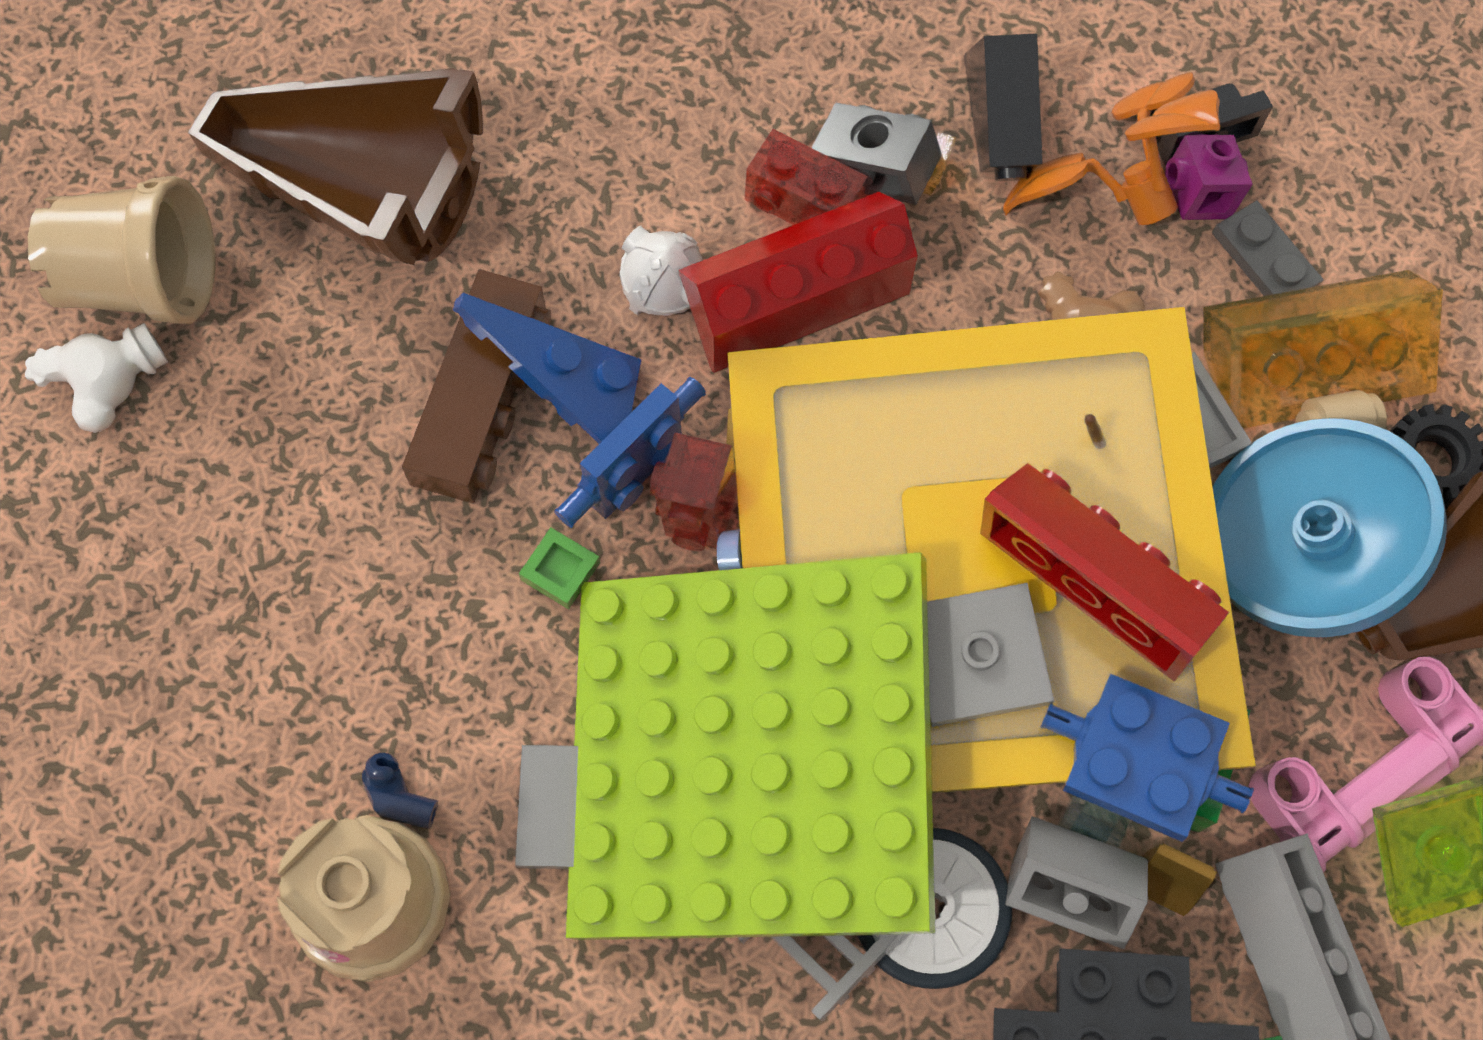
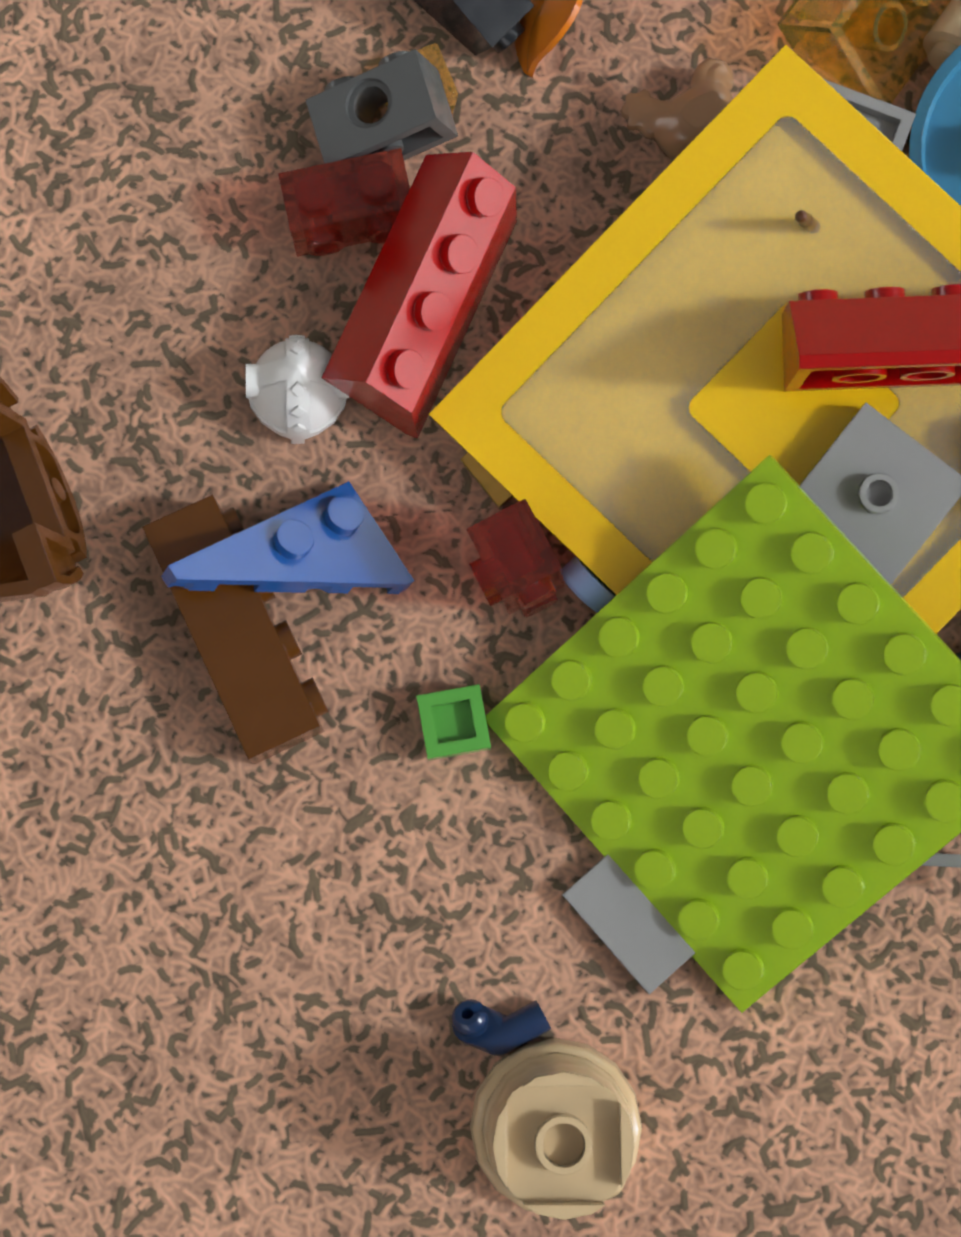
camera: 40 degrees left, 10 degrees up
(629, 454) = (434, 596): blue plate -> none

